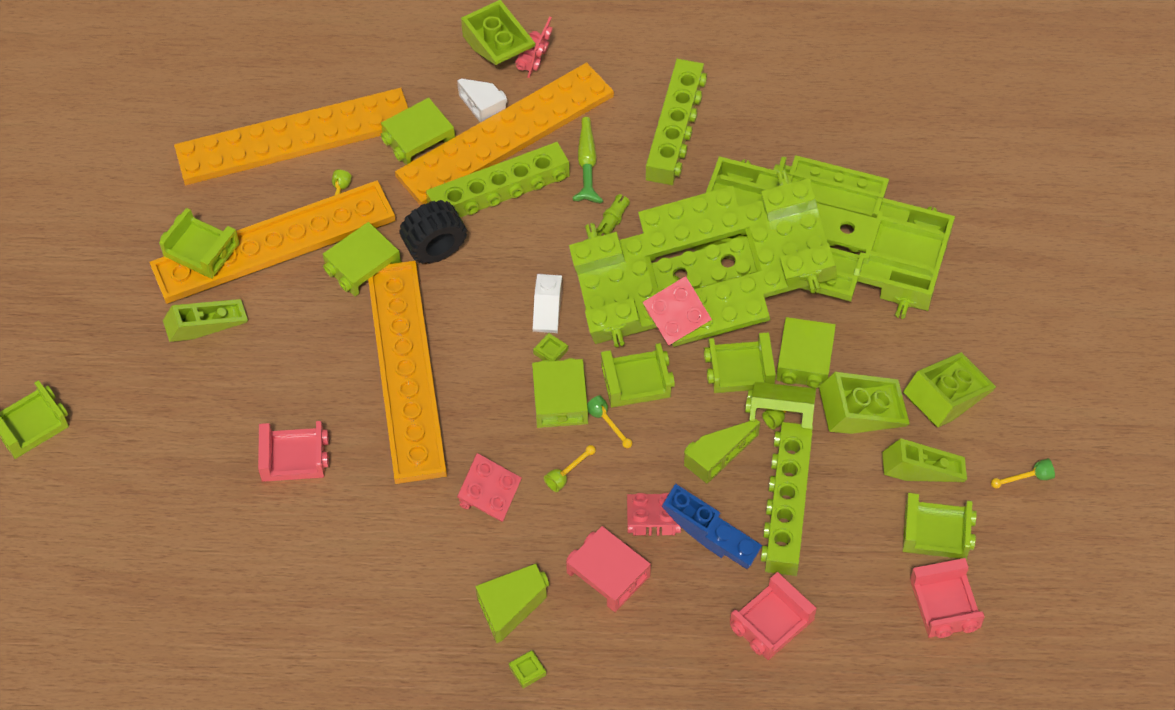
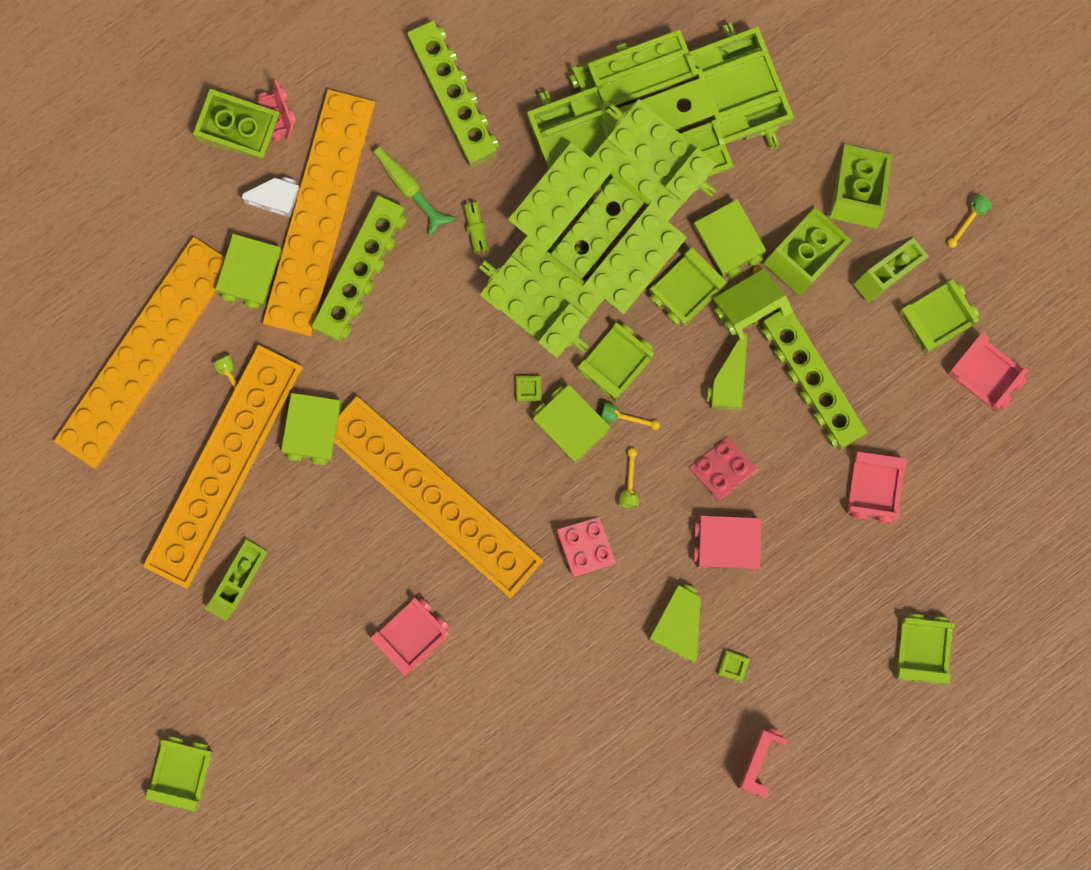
camera: 40 degrees left, 25 degrees up
(198, 244) = (172, 522): lime panel -> none
(433, 232) = (355, 363): black tyre -> none
(547, 303) = (495, 352): white slope -> none
(676, 310) = (613, 289): coral hinge -> none
(708, 529) = (781, 453): blue slope -> none

